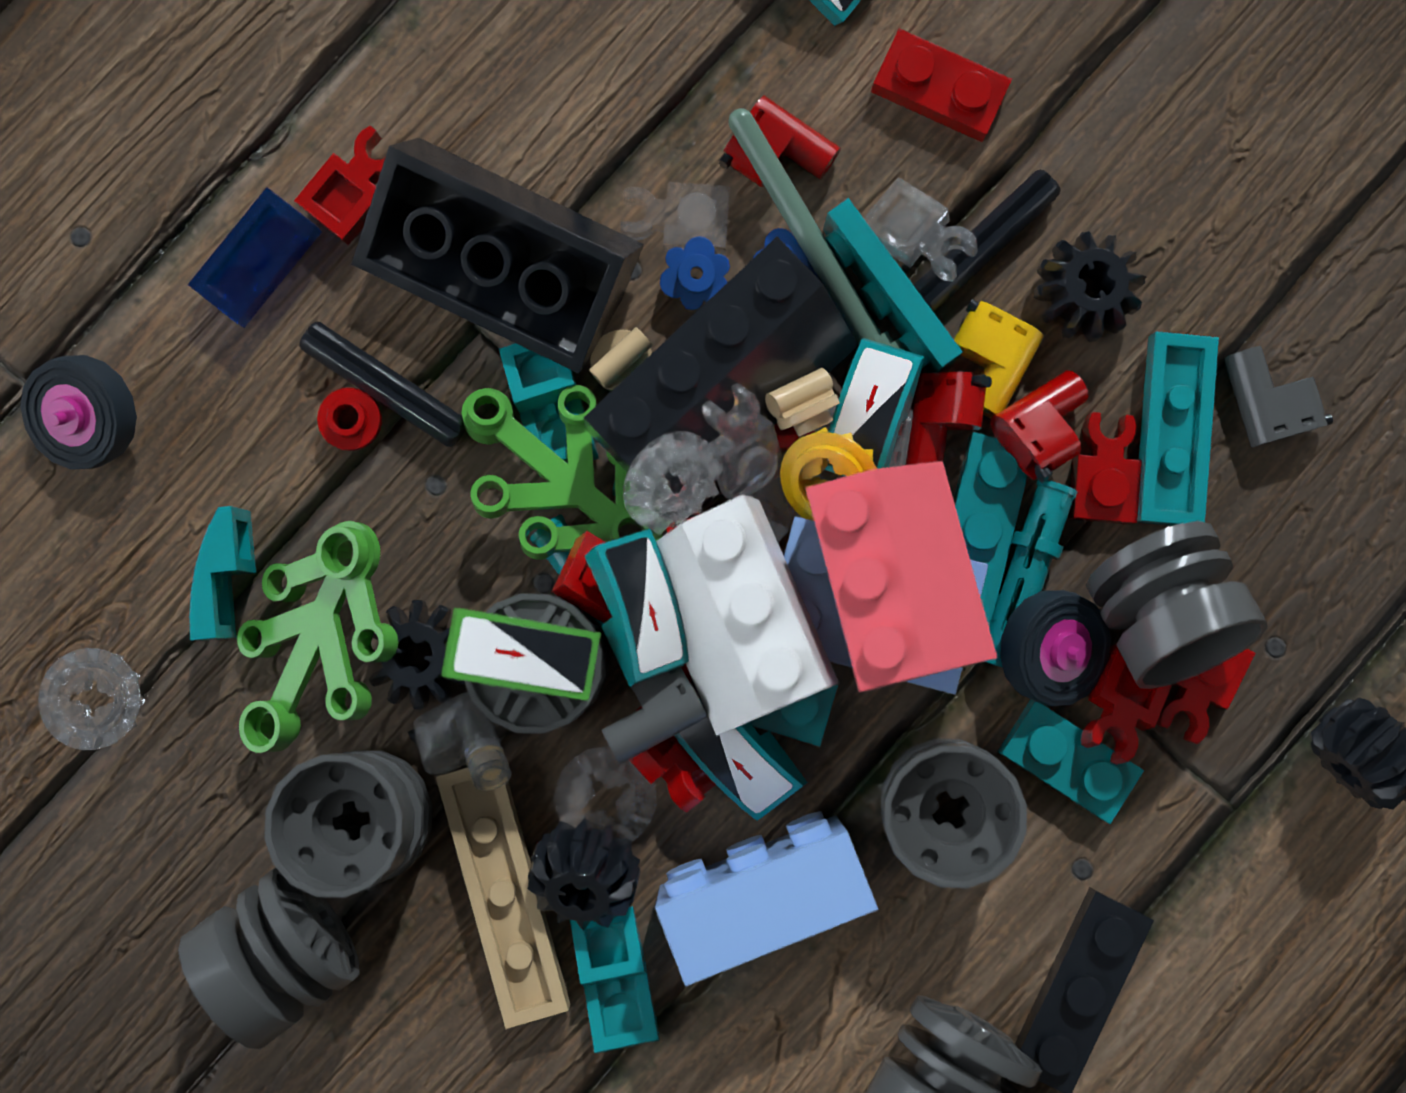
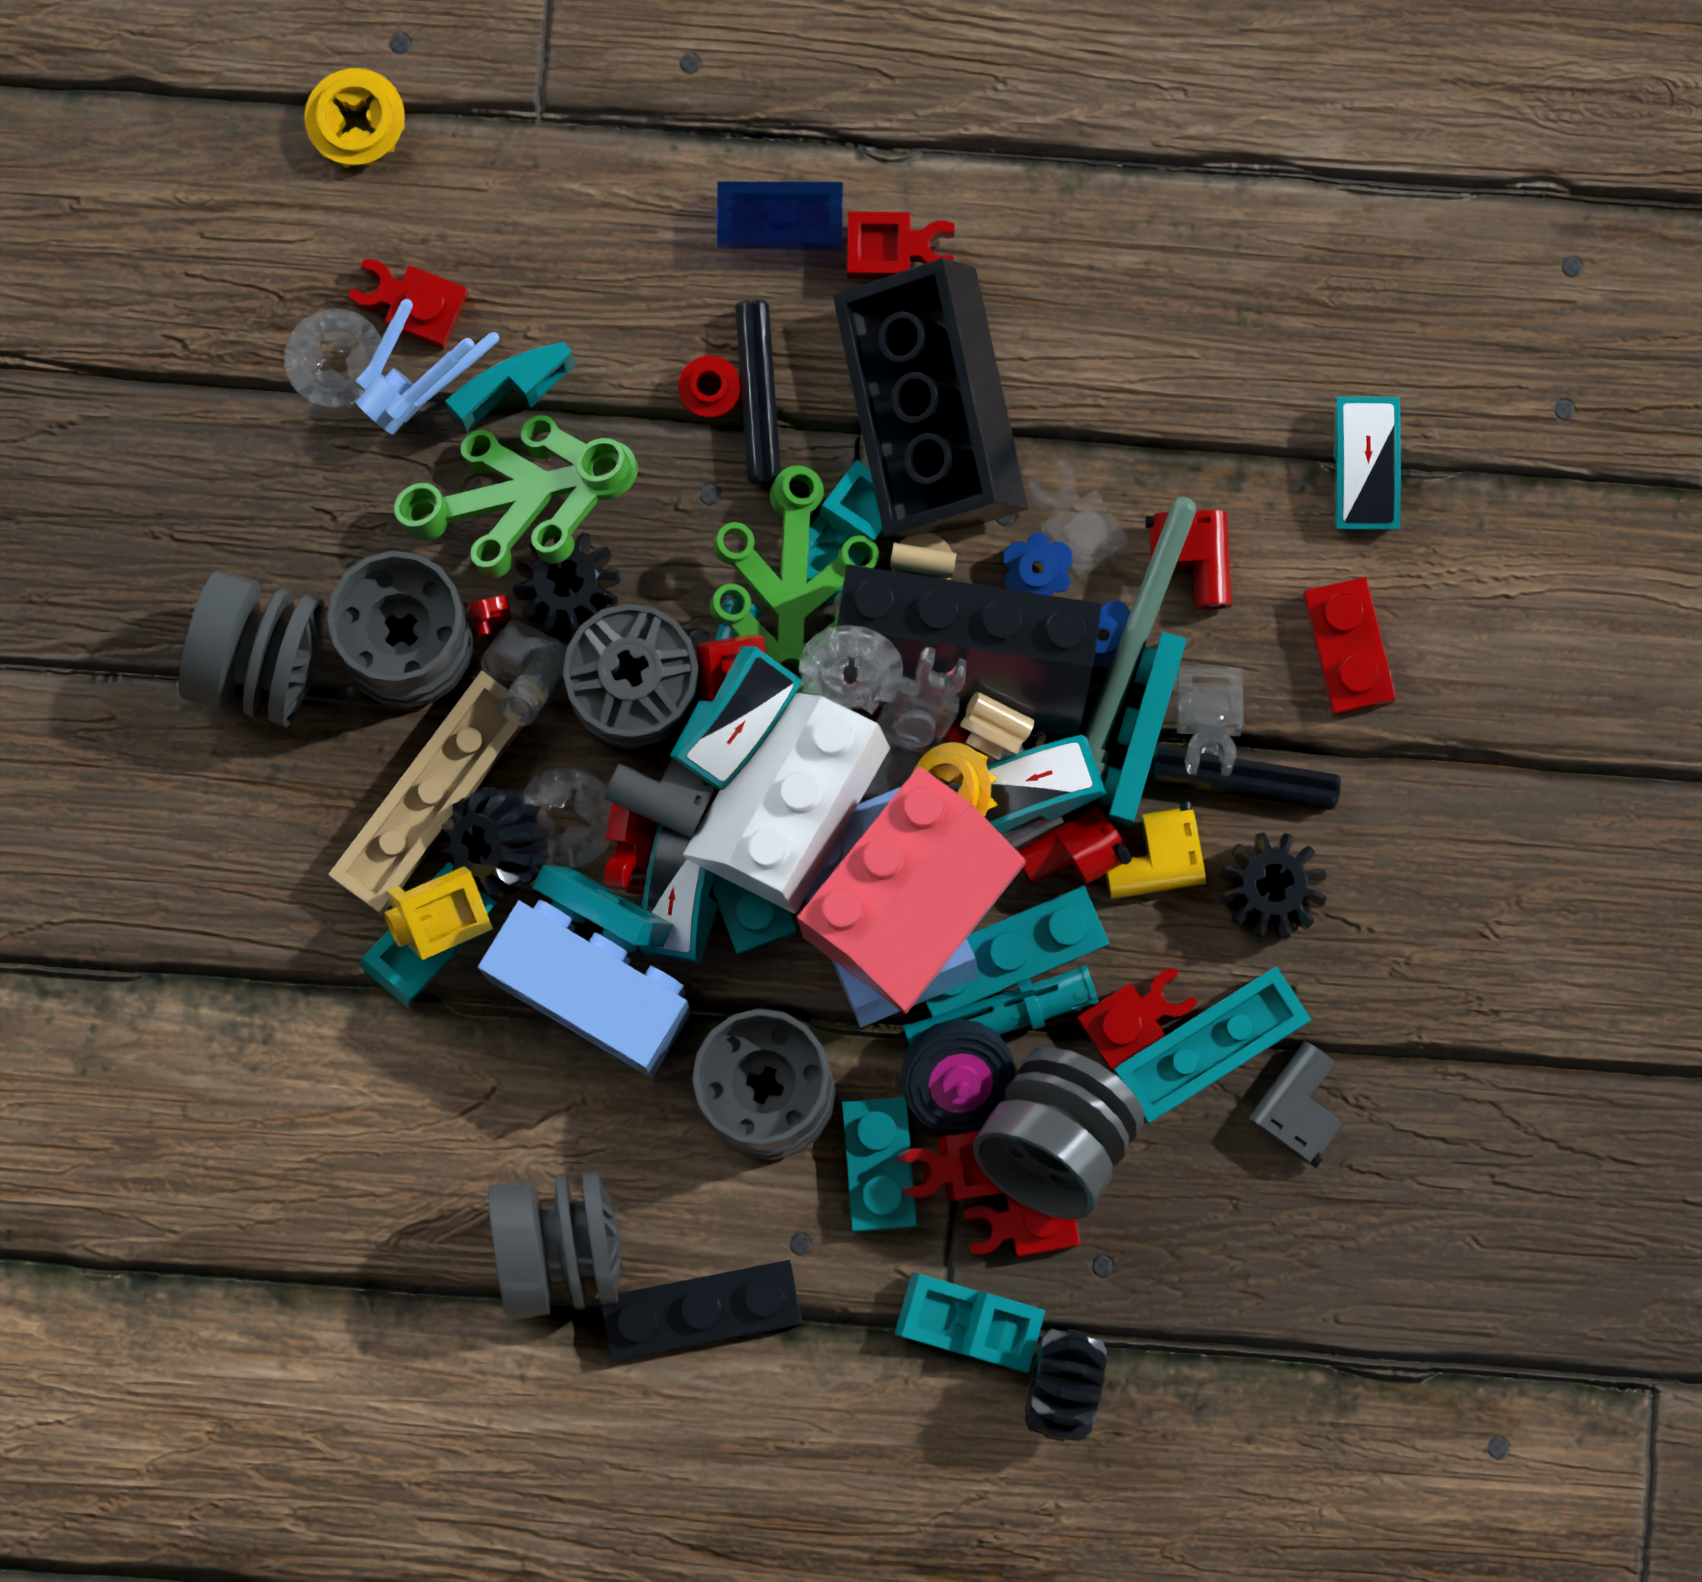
camera: 50 degrees right, 5 degrees down
(78, 412) = (552, 176): black wheel -> none
(100, 599) = (434, 301): none -> red plate
(160, 676) = (393, 397): none -> light blue plant
(395, 736) = (489, 613): none -> red piece
(521, 654) = (632, 654): slope -> none
(609, 971) = (437, 914): none -> yellow bracket
(720, 823) = (585, 898): none -> teal plate
(1036, 429) = (1122, 928): red piece -> none
(1247, 784) = (969, 1322): none -> teal slope

